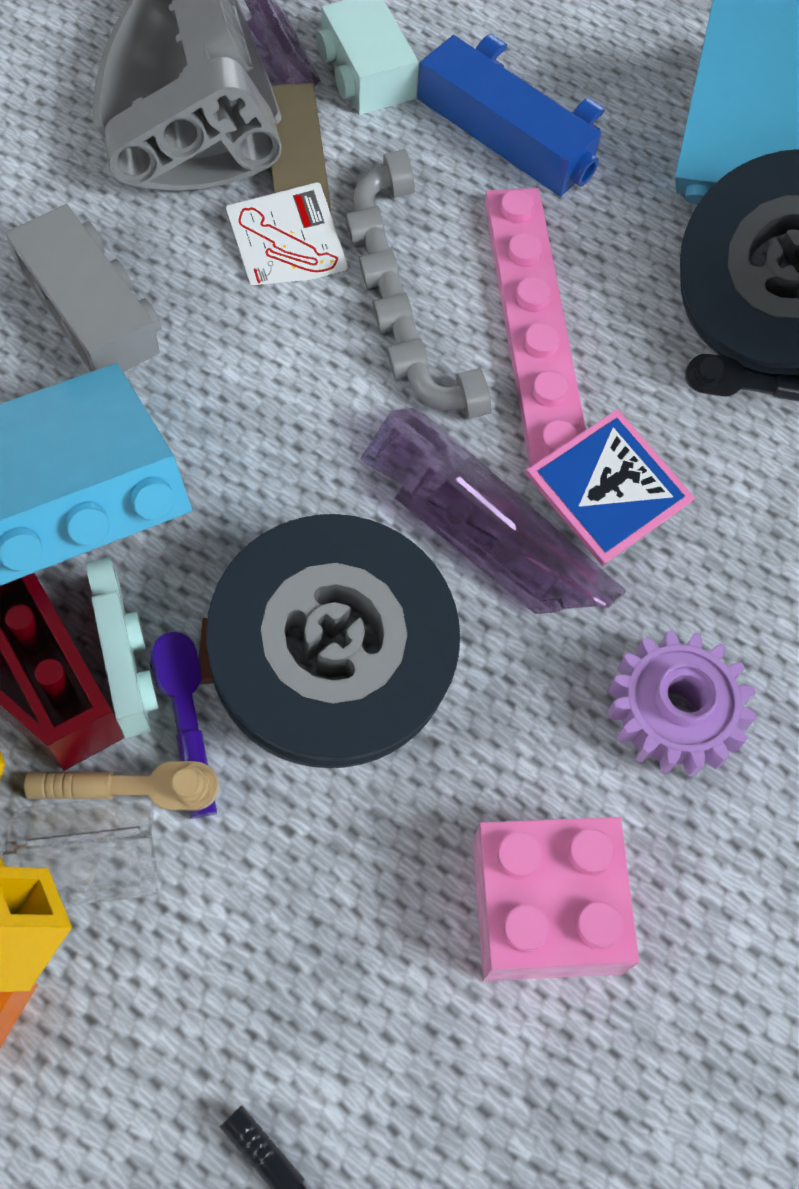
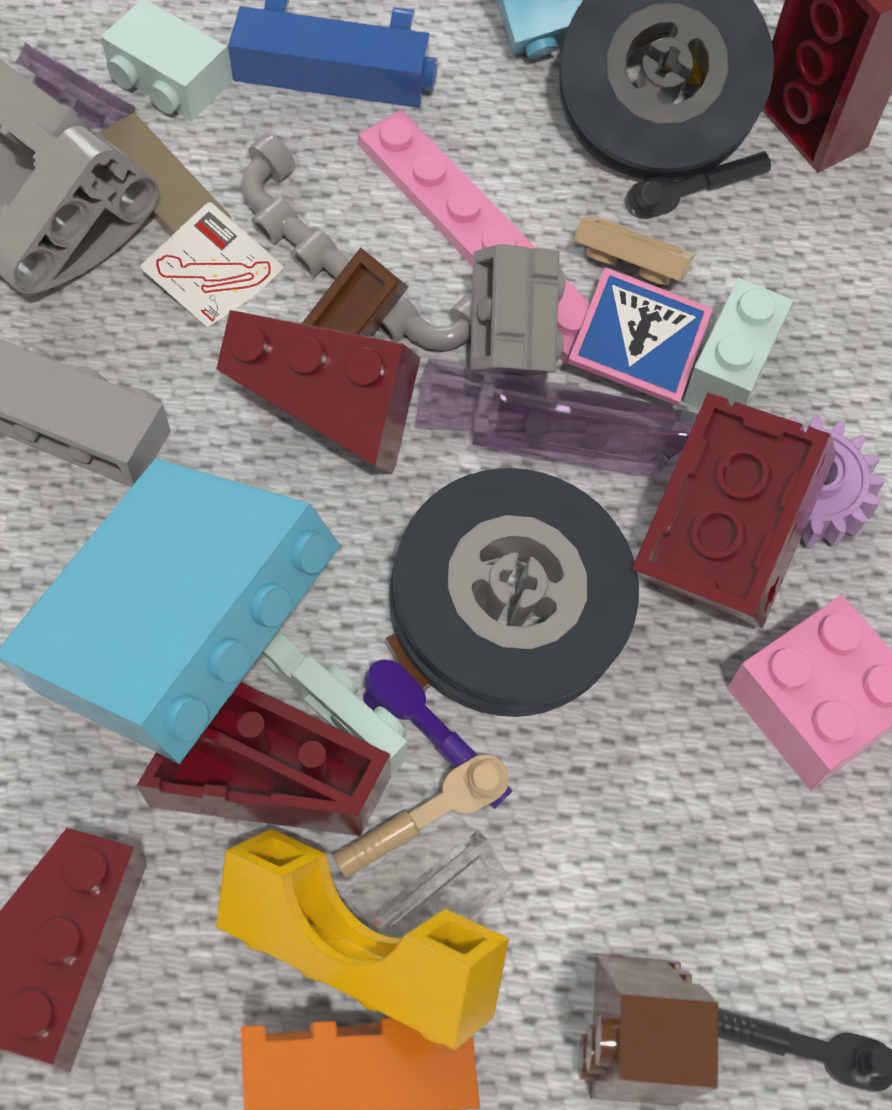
camera: 30 degrees left, 0 degrees up
(146, 1089) = (649, 1033): none -> reddish brown wedge
(301, 380) = (327, 378): none -> dark red wedge
(366, 331) = (358, 297): none -> reddish brown tile
(506, 402) = (516, 310): none -> light grey brick
(572, 683) = (735, 509): none -> dark red piece
(646, 393) = (612, 241): none -> tan plate
(690, 546) = (738, 345): none -> light aqua brick

